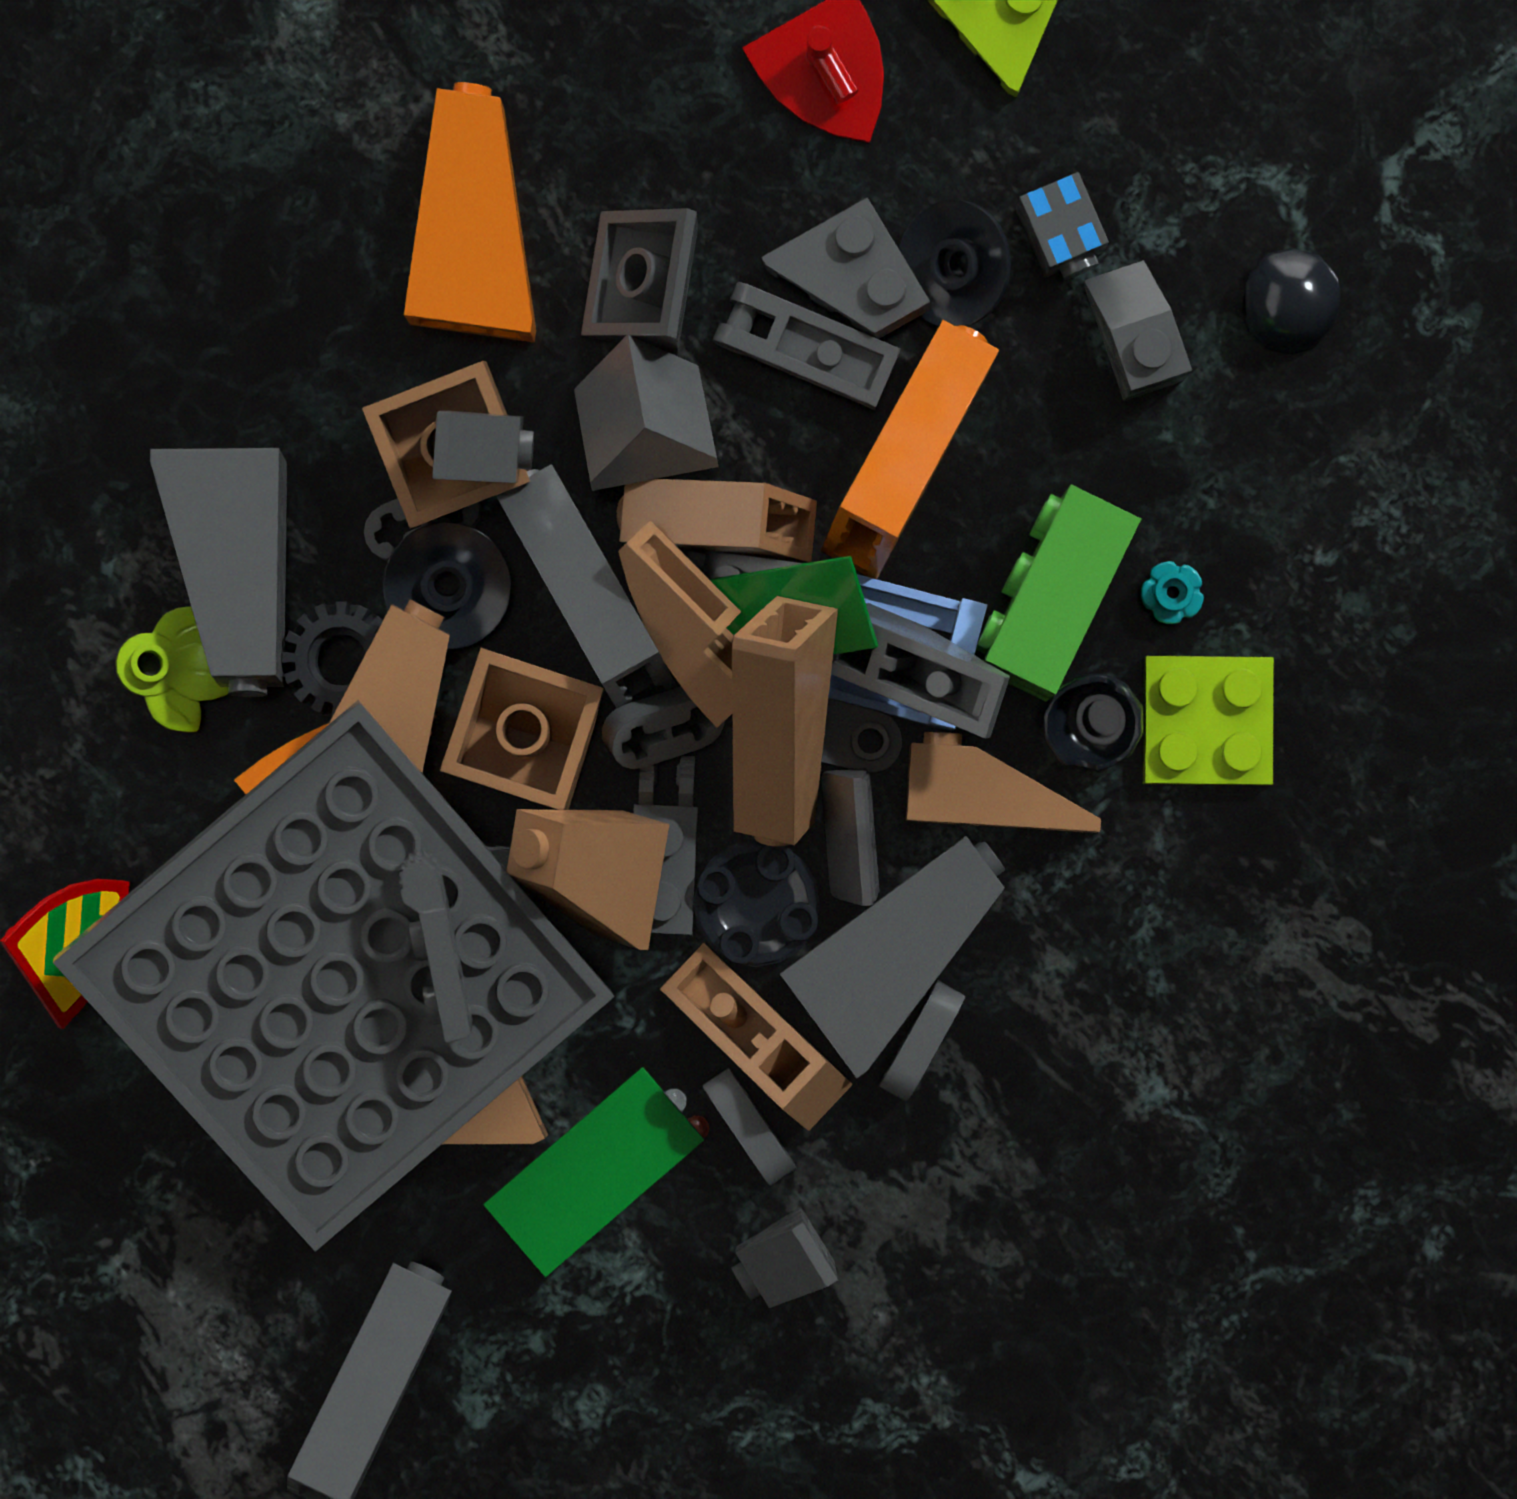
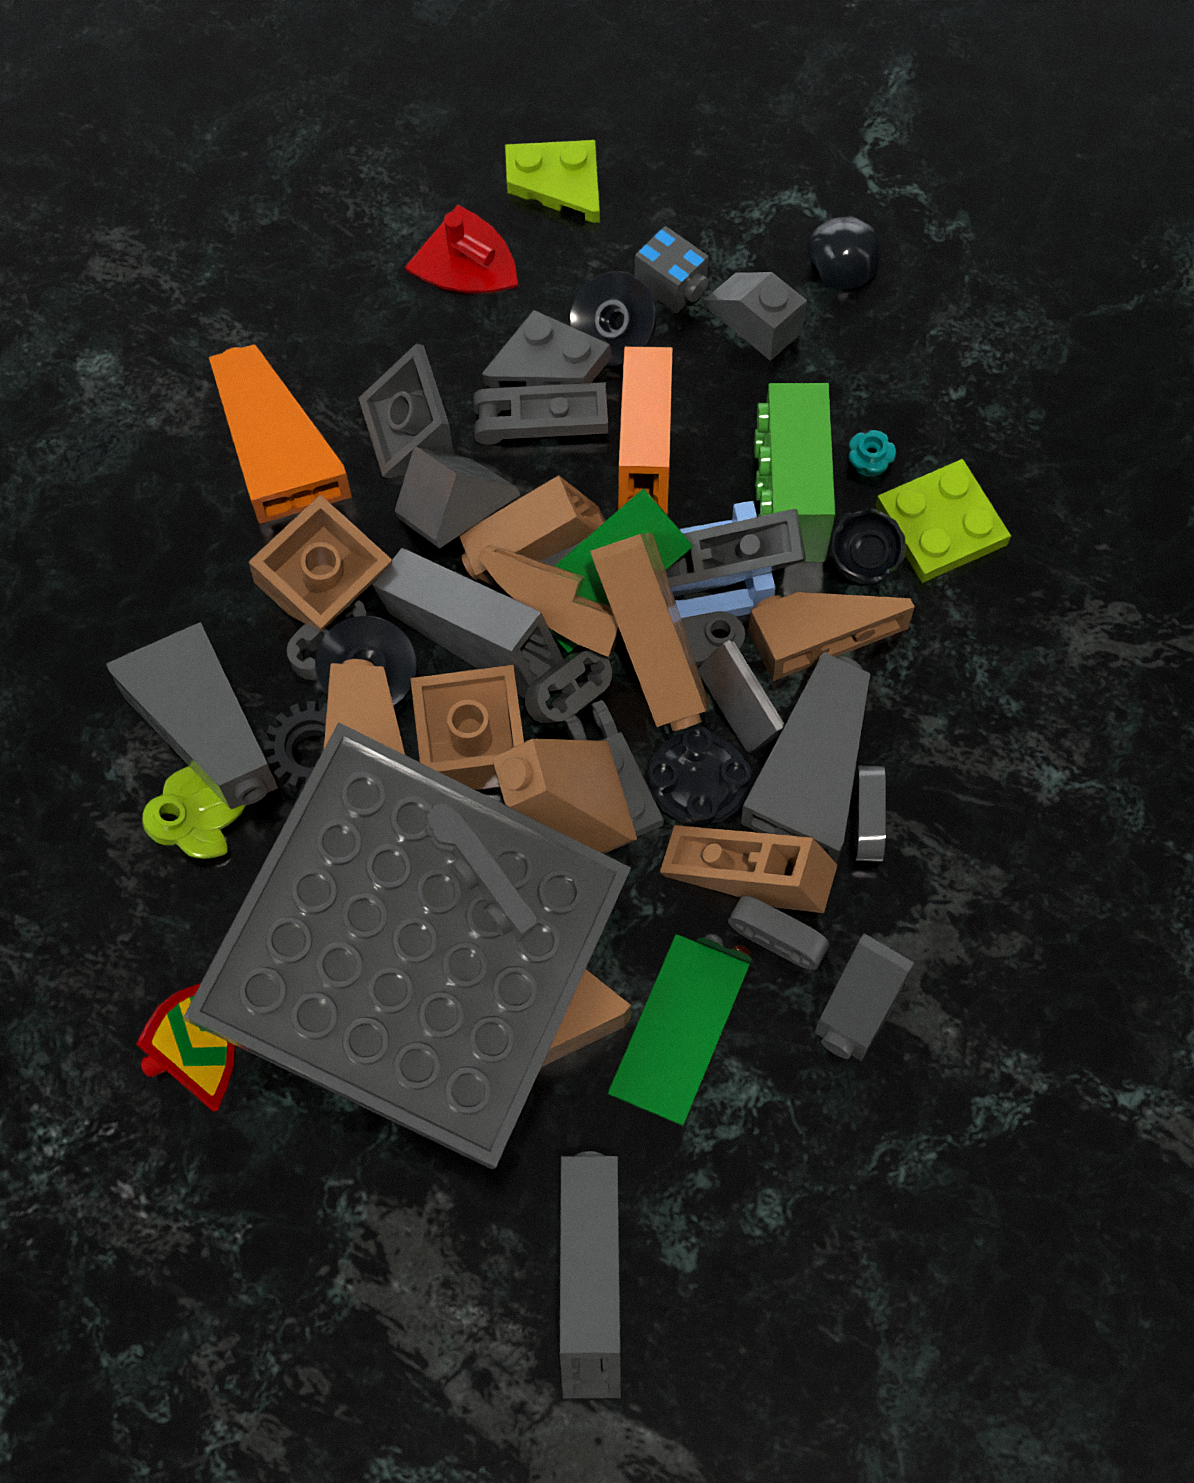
camera: 25 degrees left, 20 degrees down
(481, 447) = (344, 535): dark grey slope -> none

